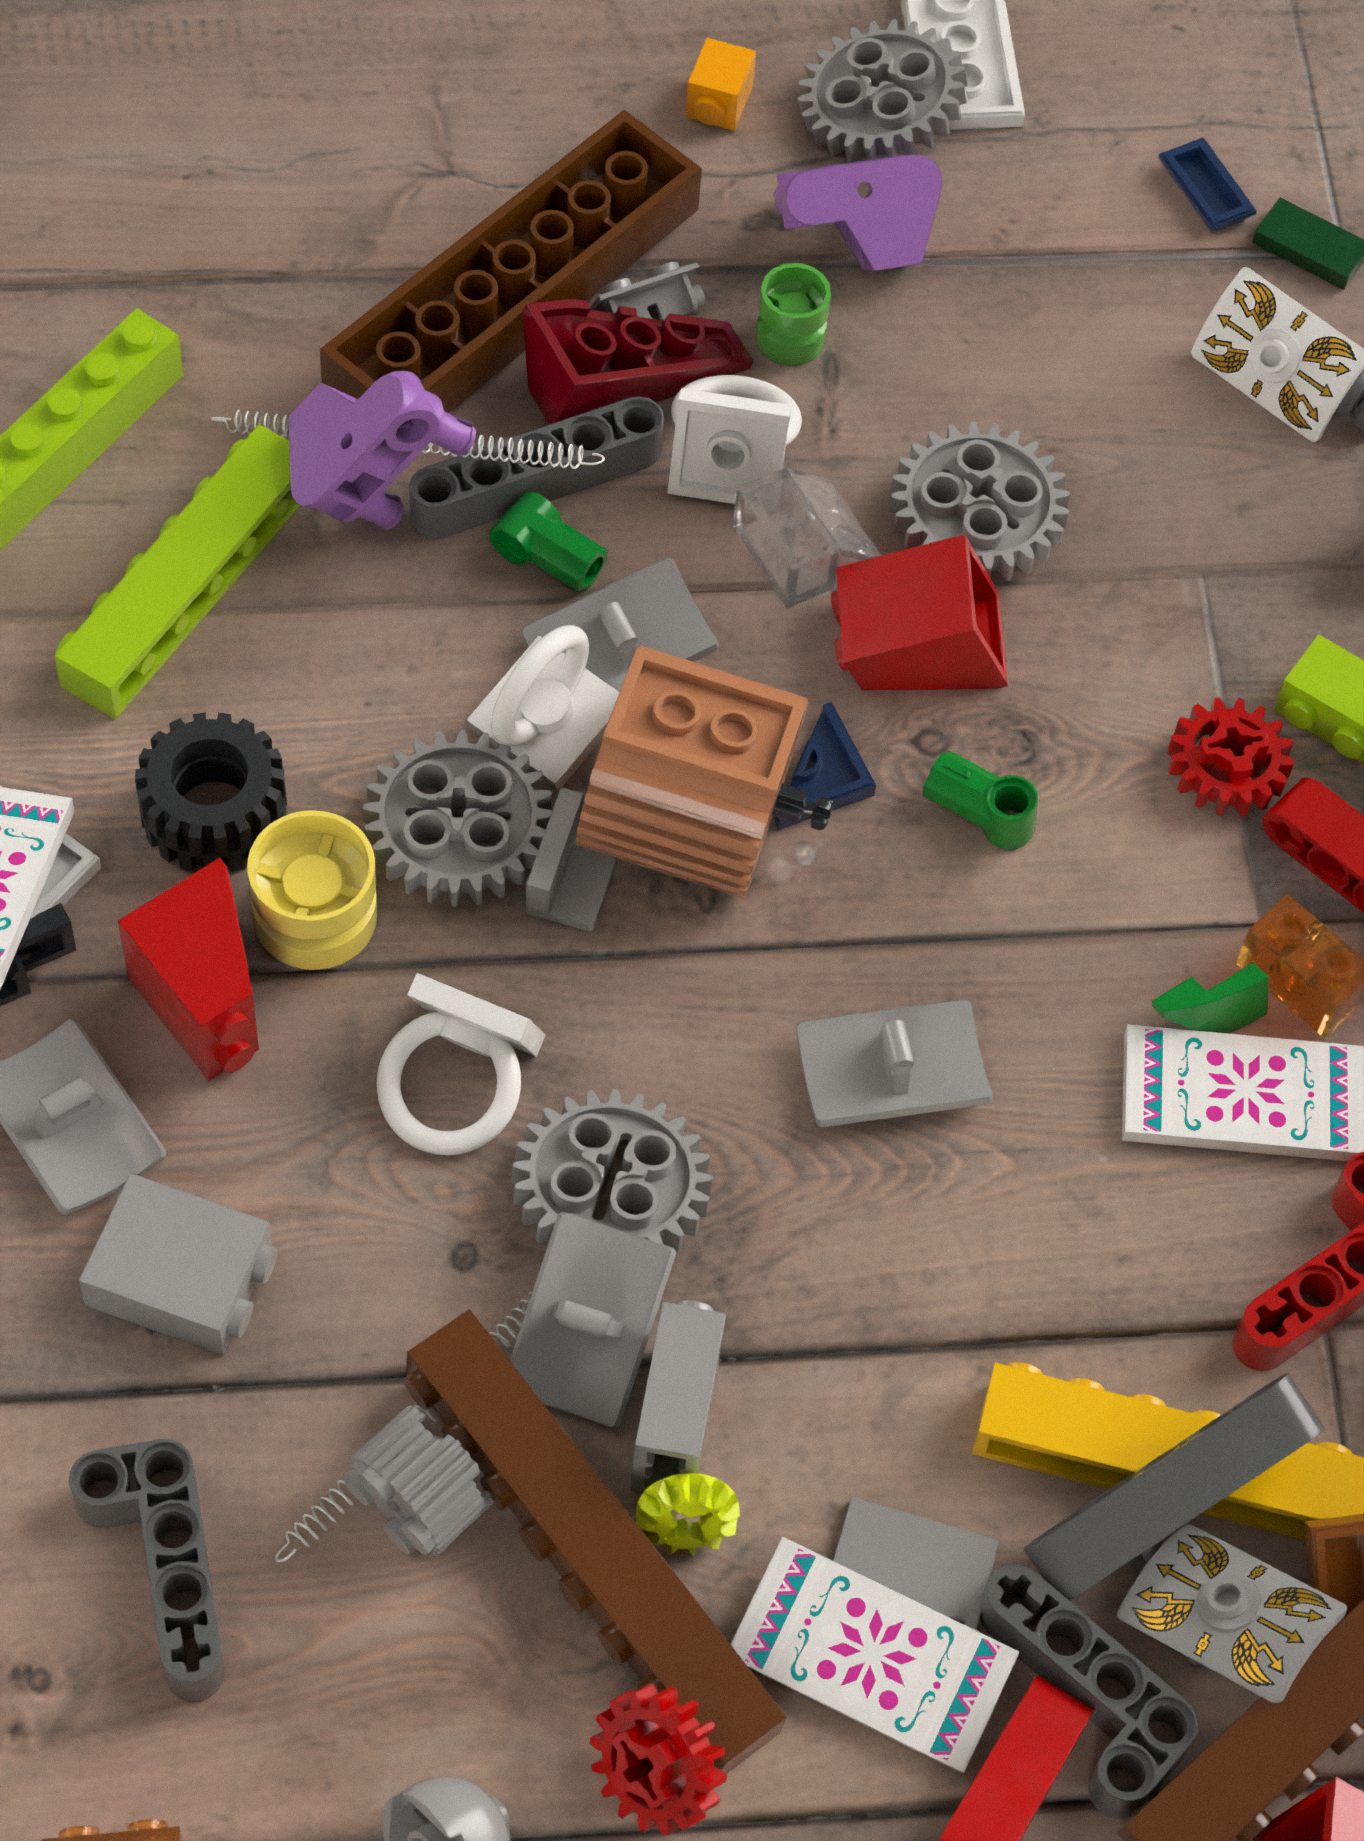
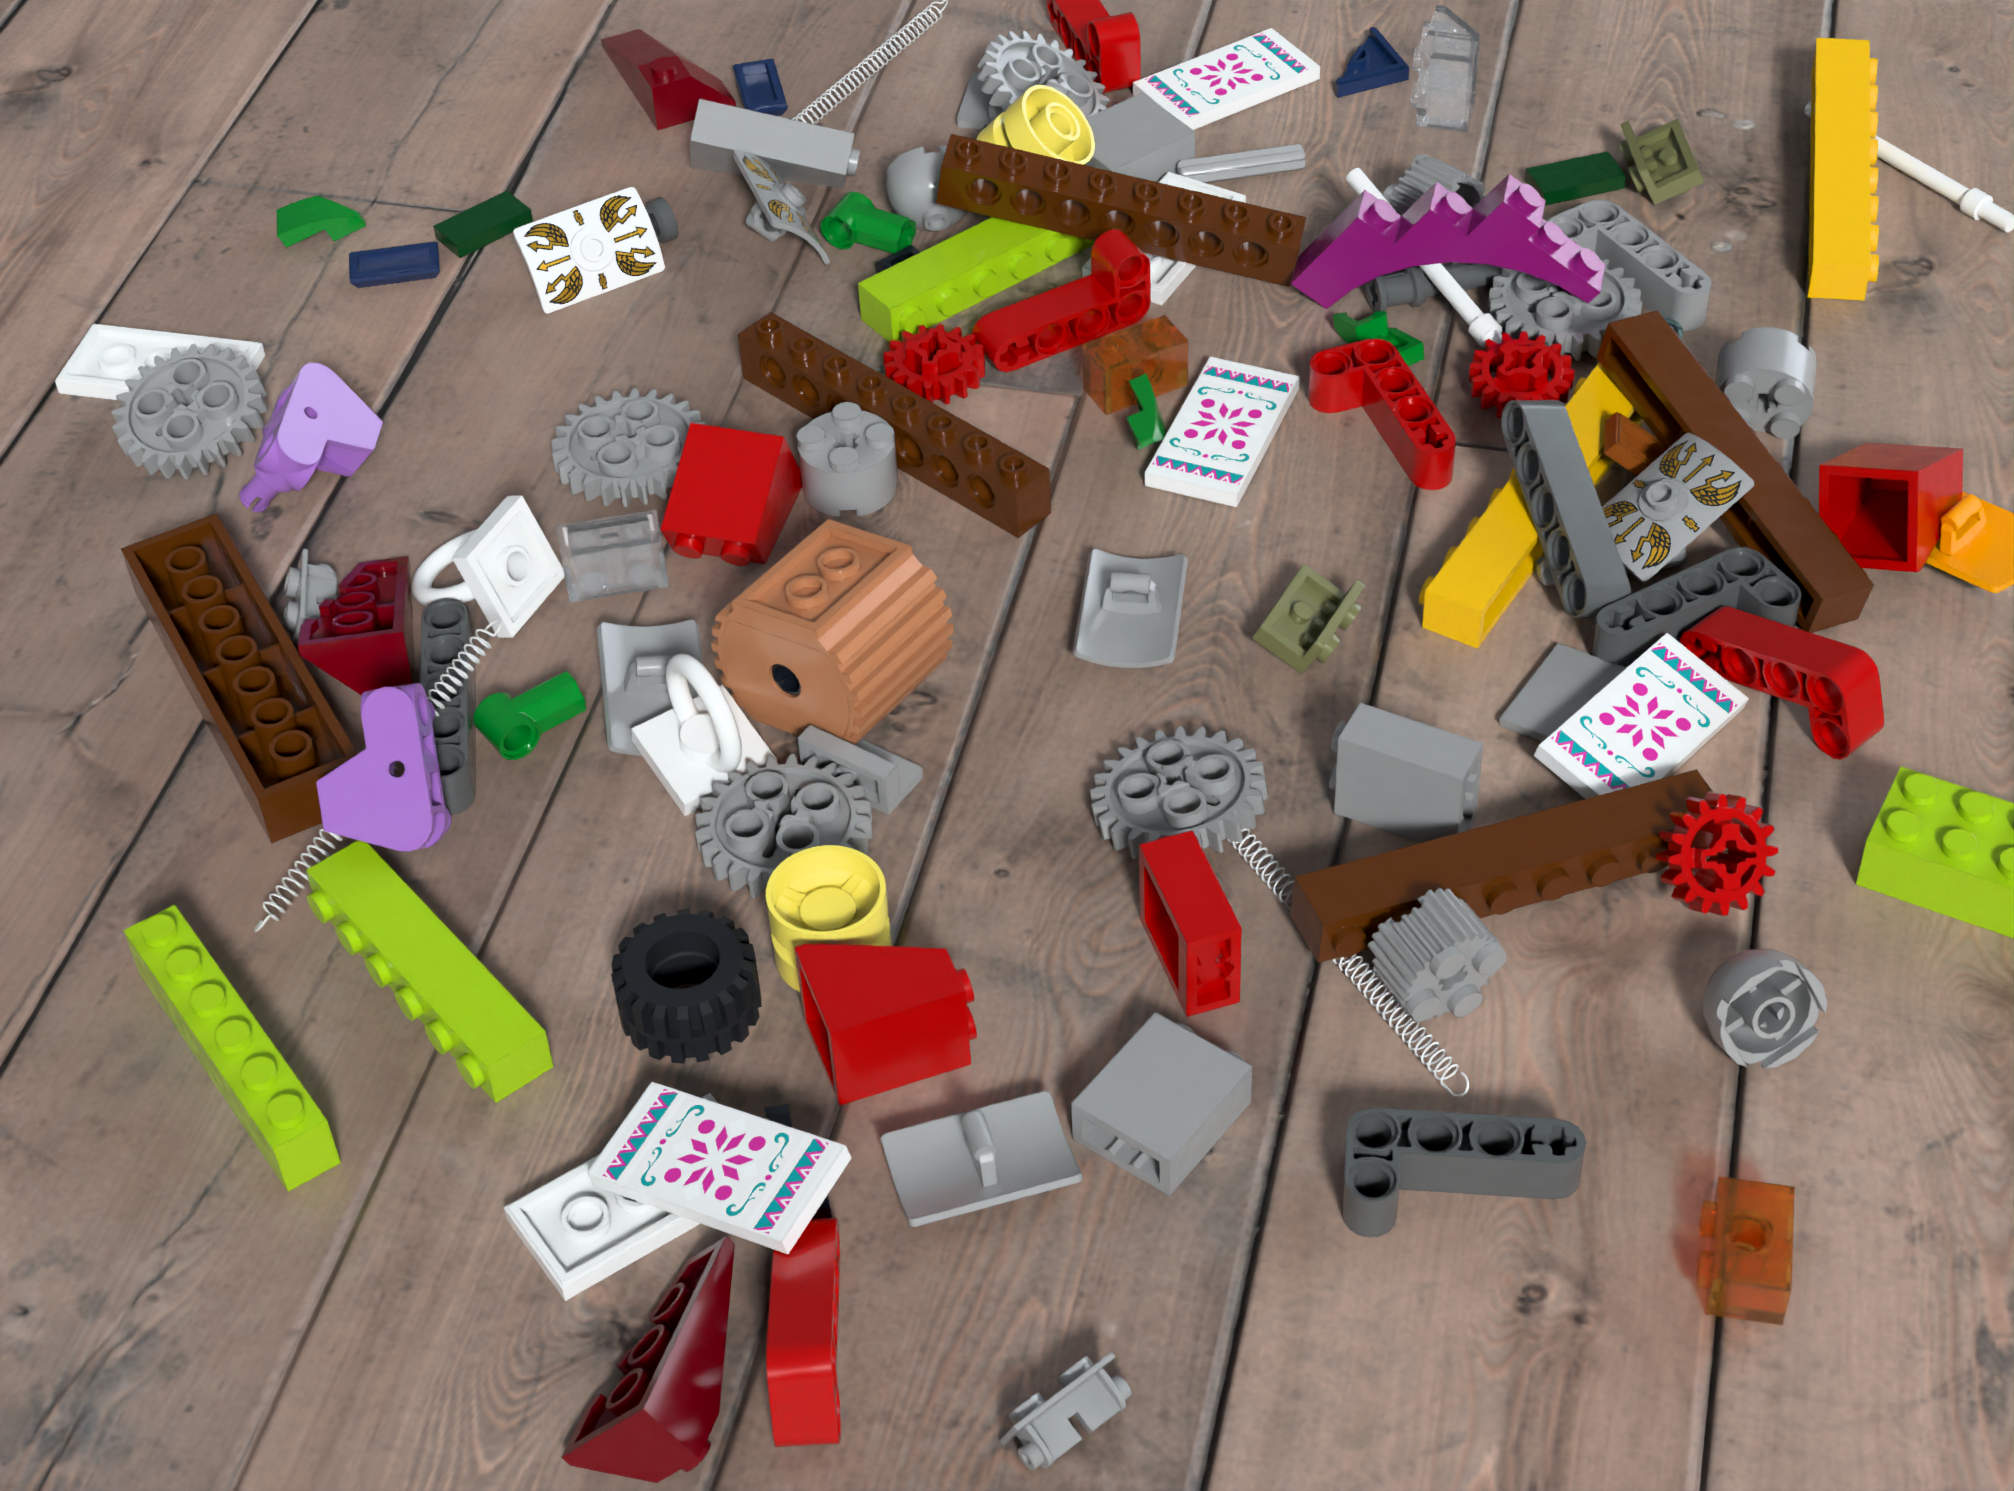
camera: 65 degrees left, 15 degrees down
(402, 1225) = (1190, 923): none -> red window
(471, 1025) = (1008, 839): white tile -> none
(591, 1317) = (1304, 814): light grey shield -> none
(692, 1496) = (1501, 791): neon yellow gear -> none
(720, 84) = (111, 508): light orange brick -> none
(793, 314) = (387, 508): bright green wheel -> none
(934, 1250) = (1306, 617): none -> olive bracket
(982, 797) = (923, 498): green piece -> none
(1023, 713) = (847, 461): none -> light grey brick
(1105, 745) = (928, 440): none -> reddish brown brick
(1248, 82) = (313, 215): none -> green slope

